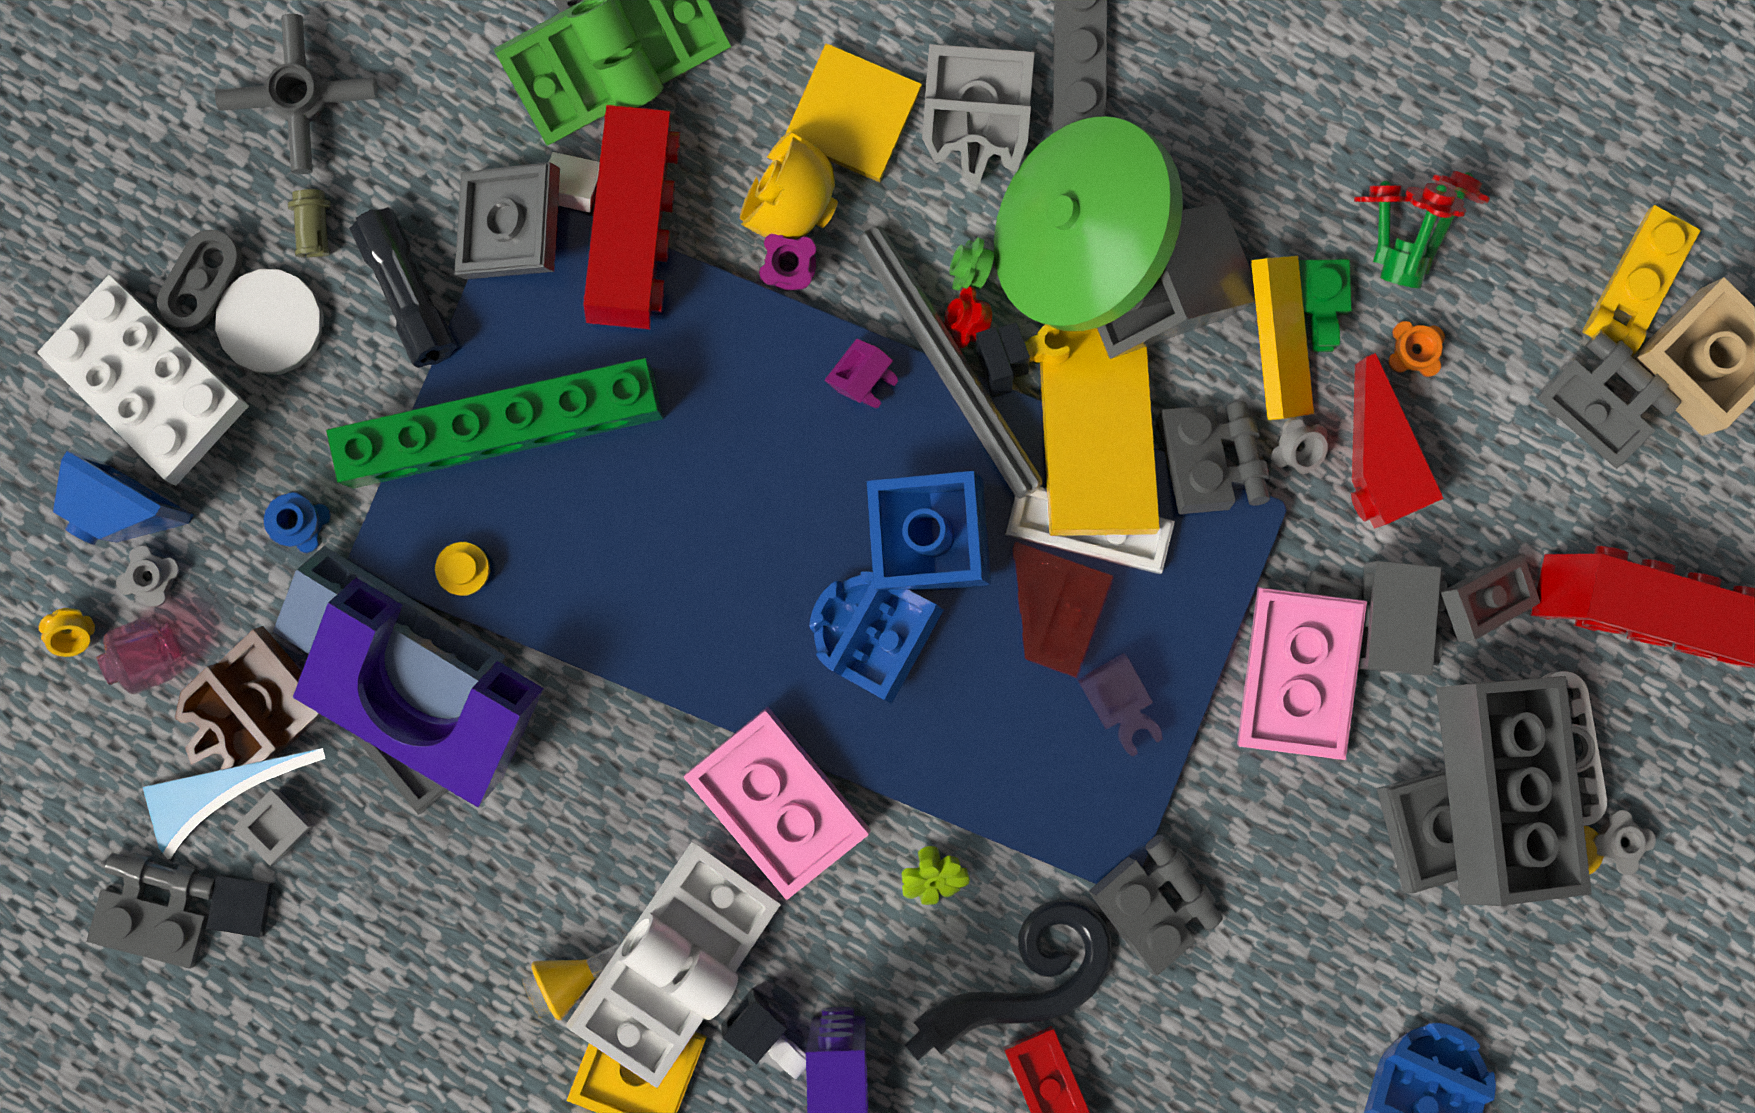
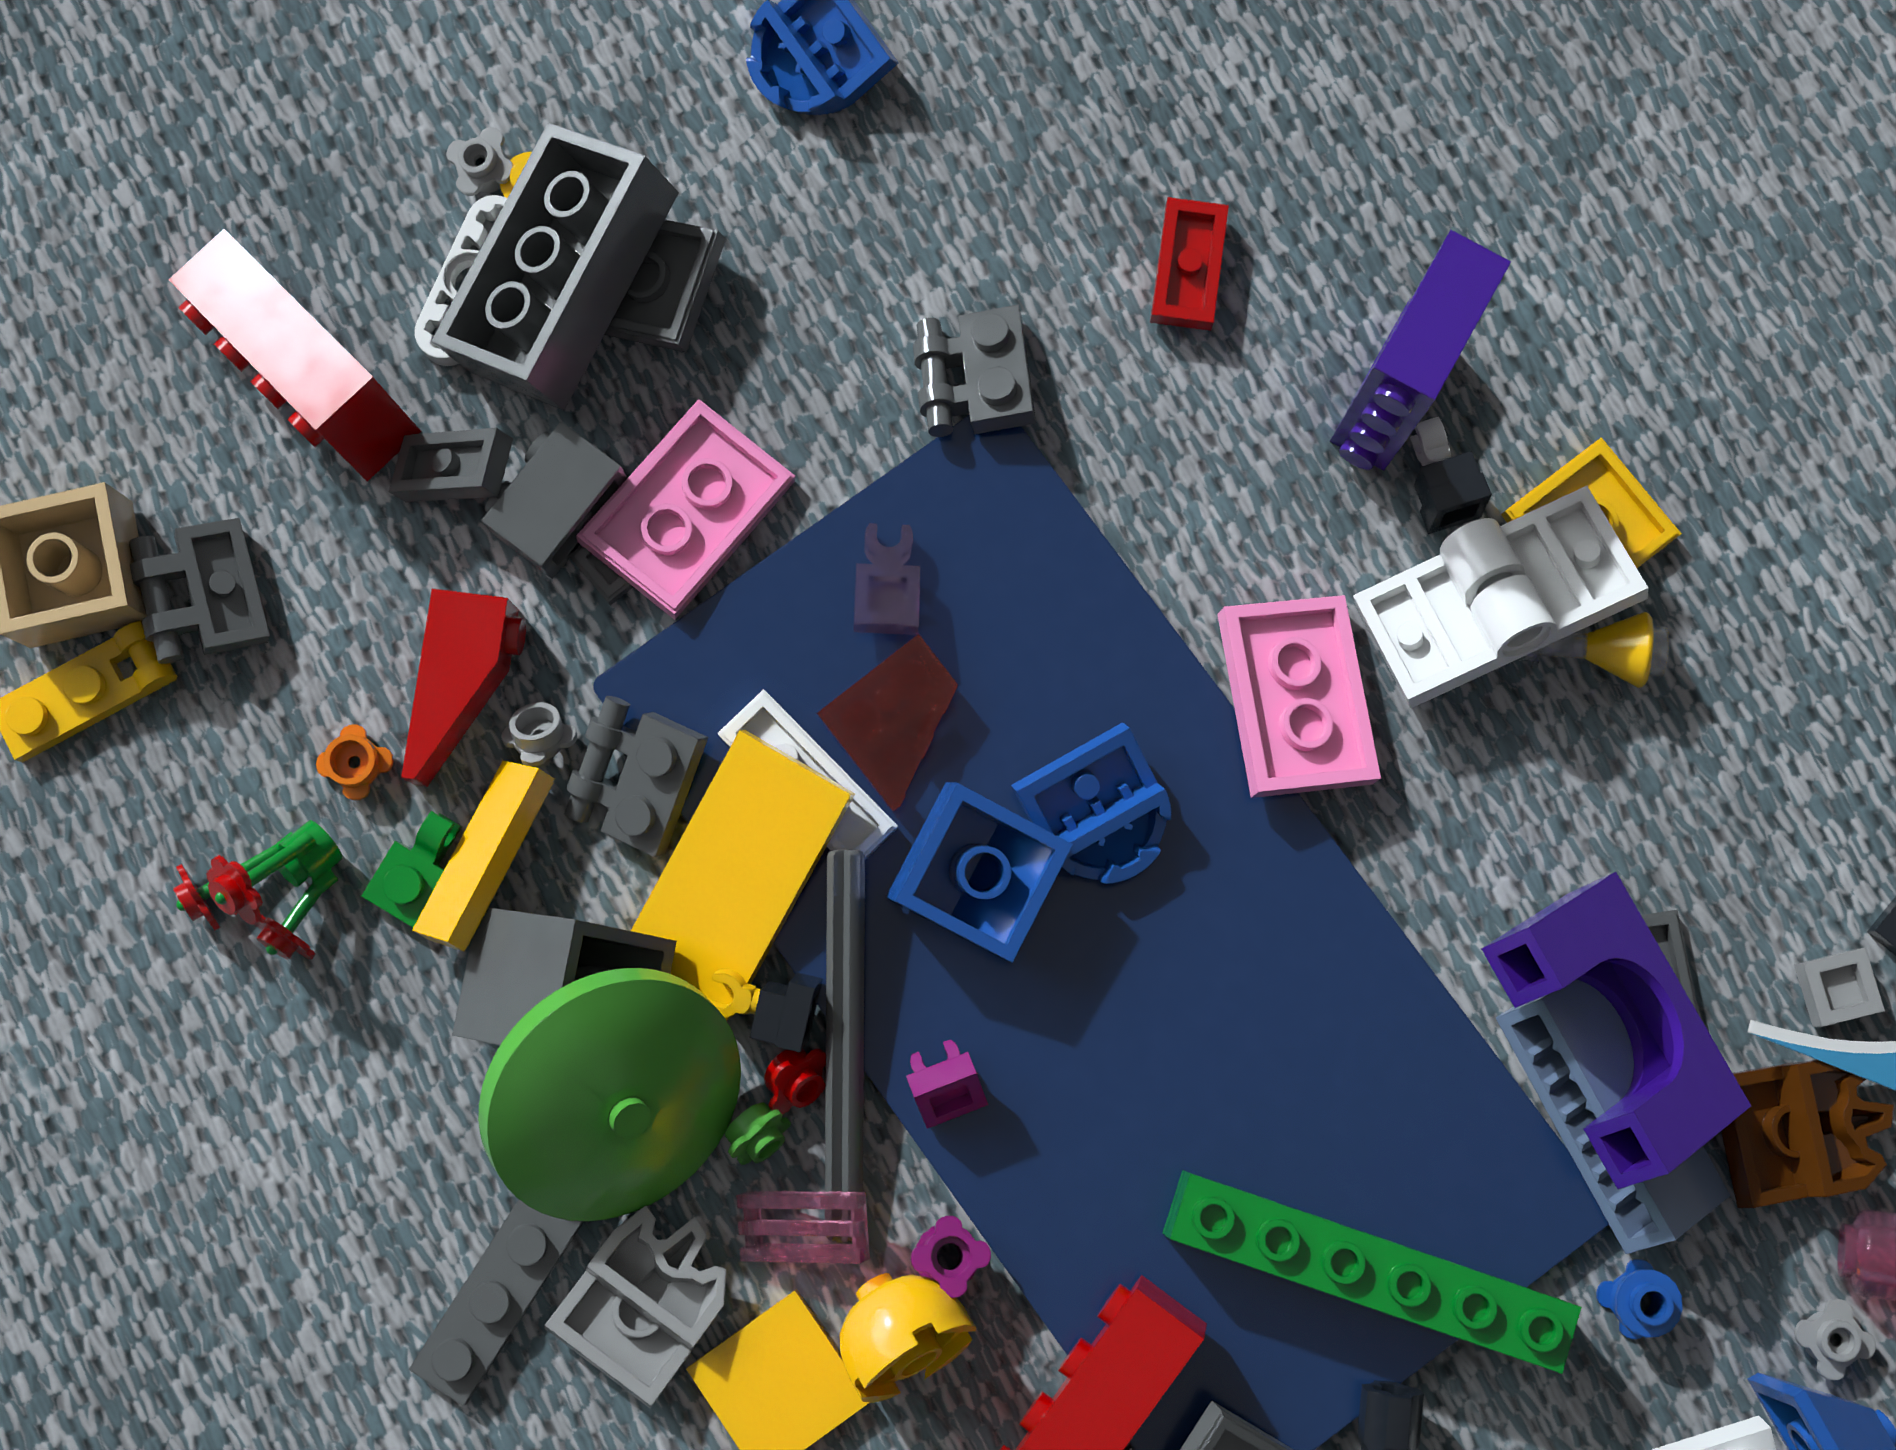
camera: 145 degrees left, 5 degrees down
(462, 568) = (1491, 1136): yellow plate -> none
(931, 203) = (755, 1227): none -> clear pink tile
(933, 877) = (1181, 531): lime plant -> none
(960, 1014) = (1232, 384): black plant -> none

